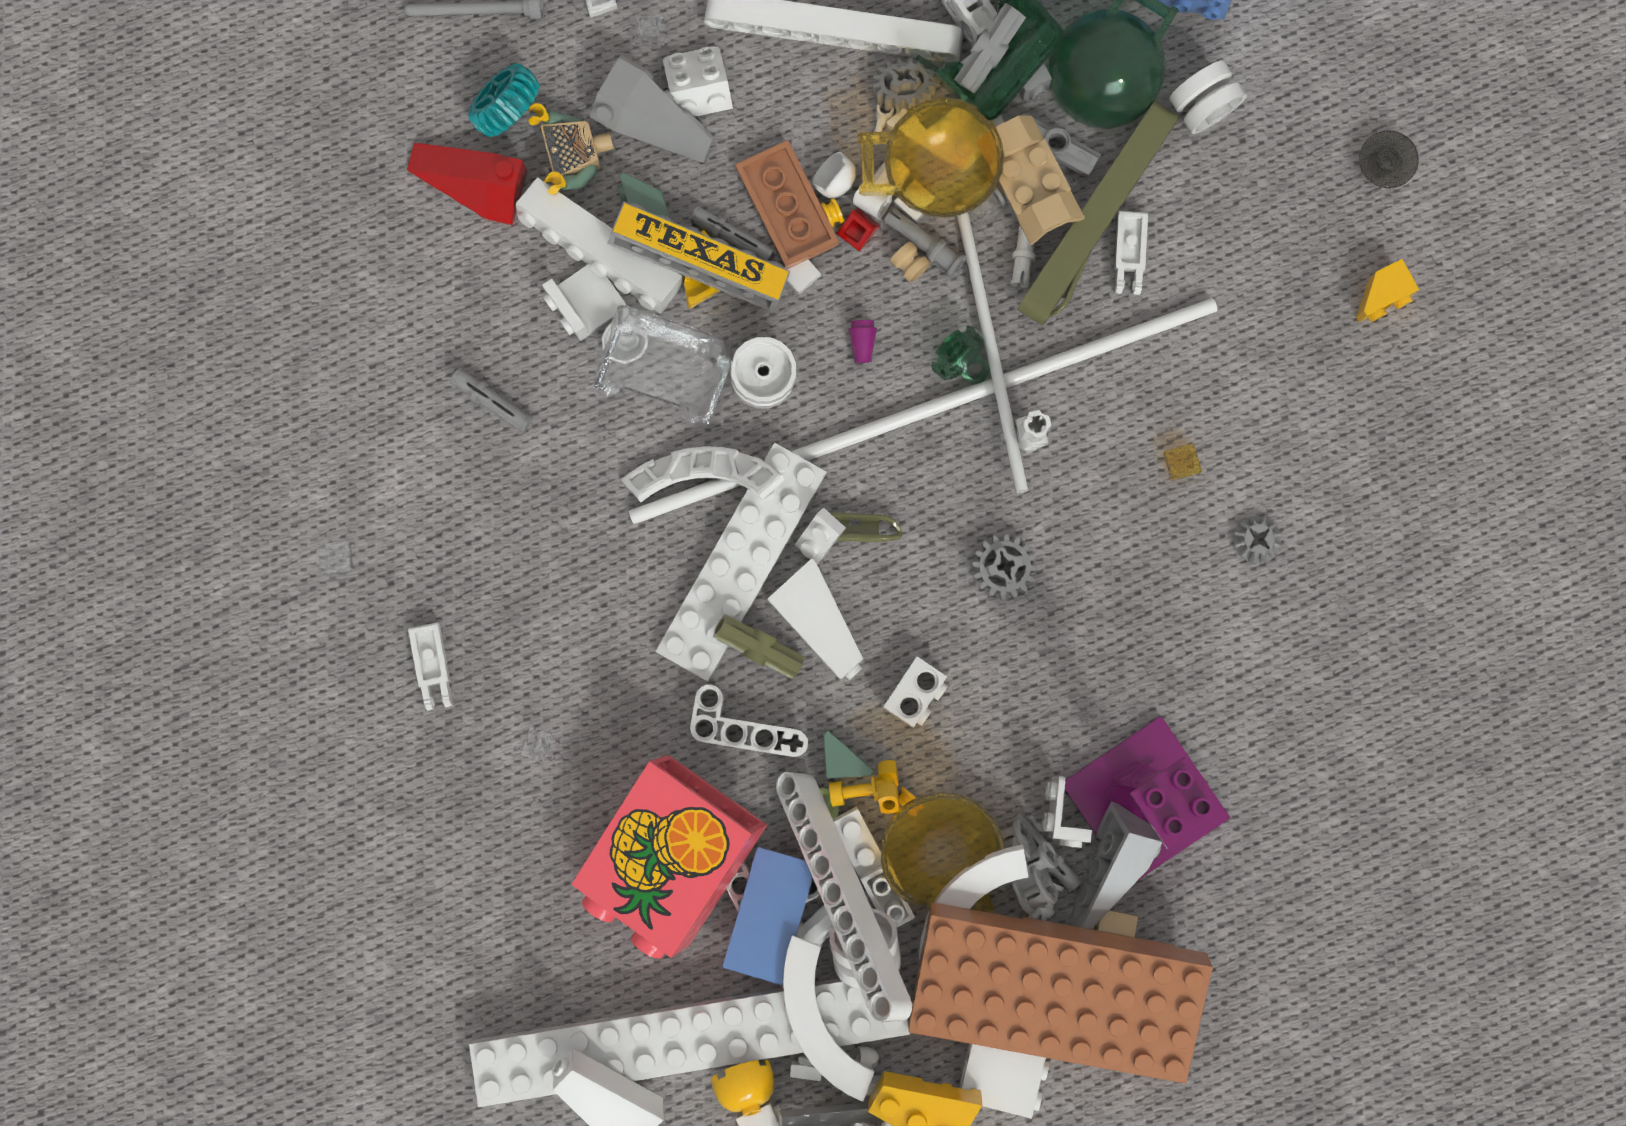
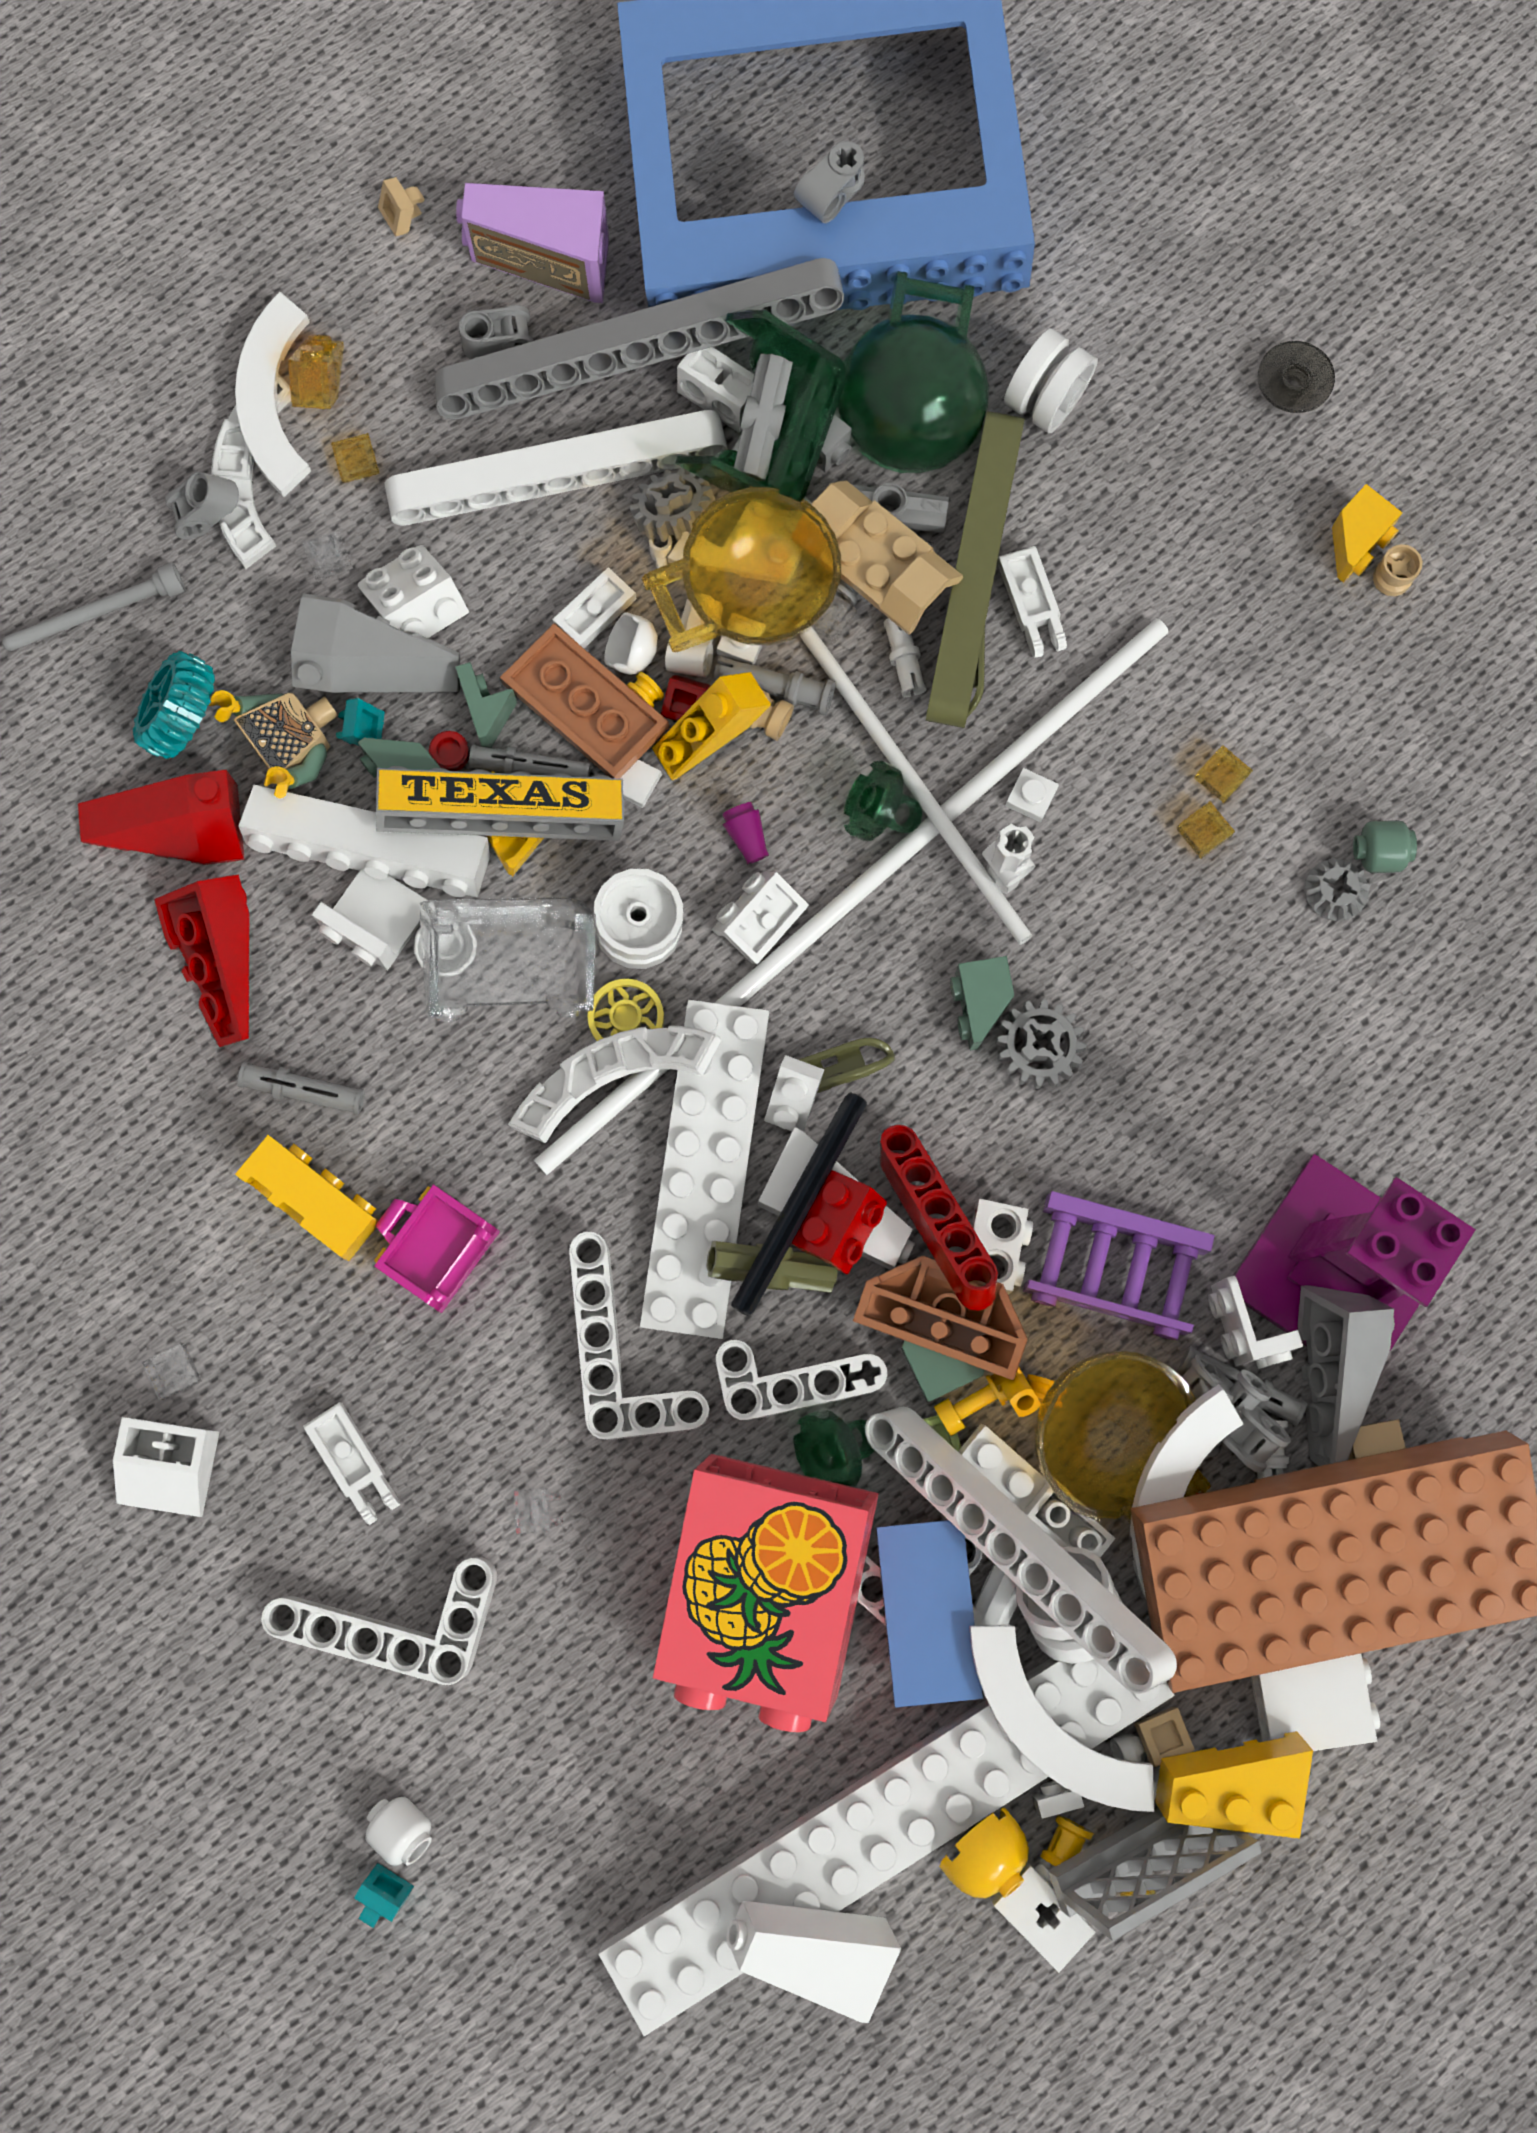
camera: 25 degrees left, 5 degrees down
(307, 618) = (163, 1466): none -> white slope
(346, 951) = (382, 1895): none -> teal tile
(371, 915) = (398, 1831): none -> white head
(413, 788) = (390, 1635): none -> white beam
(469, 477) = (309, 1197): none -> yellow wedge
(471, 272) = (212, 932): none -> red wedge
(539, 543) = (434, 1245): none -> dark pink piece
(627, 160) = (360, 721): none -> teal tile
(627, 663) = (609, 1356): none -> white beam
(680, 203) = (449, 750): none -> red tile
(717, 187) = (487, 710): none -> sand green slope
(729, 434) = (624, 1013): none -> light yellow wheel
(748, 782) = (830, 1449): none -> clear green tile
(792, 611) = (798, 1204): none -> black axle
(801, 1098) = (1066, 1841): none -> yellow bush
(815, 635) = (840, 1221): none -> red bracket
(820, 139) = (595, 608): none -> white plate
(848, 402) = (760, 915): none -> white bracket
(861, 724) = (923, 1309): none -> nougat wedge
(868, 254) = (711, 722): none -> yellow slope
(878, 669) = (937, 1233): none -> red beam
(893, 1057) = (1164, 1735): none -> tan tile
(980, 518) = (984, 995): none -> sand green slope
(1021, 725) = (1146, 1234): none -> medium lavender fence
(1072, 390) = (1032, 795): none -> white plate
(1212, 427) = (1223, 774): none -> clear yellow plate
(1303, 523) = (1385, 846): none -> sand green head
(1404, 325) = (1402, 562): none -> tan wheel

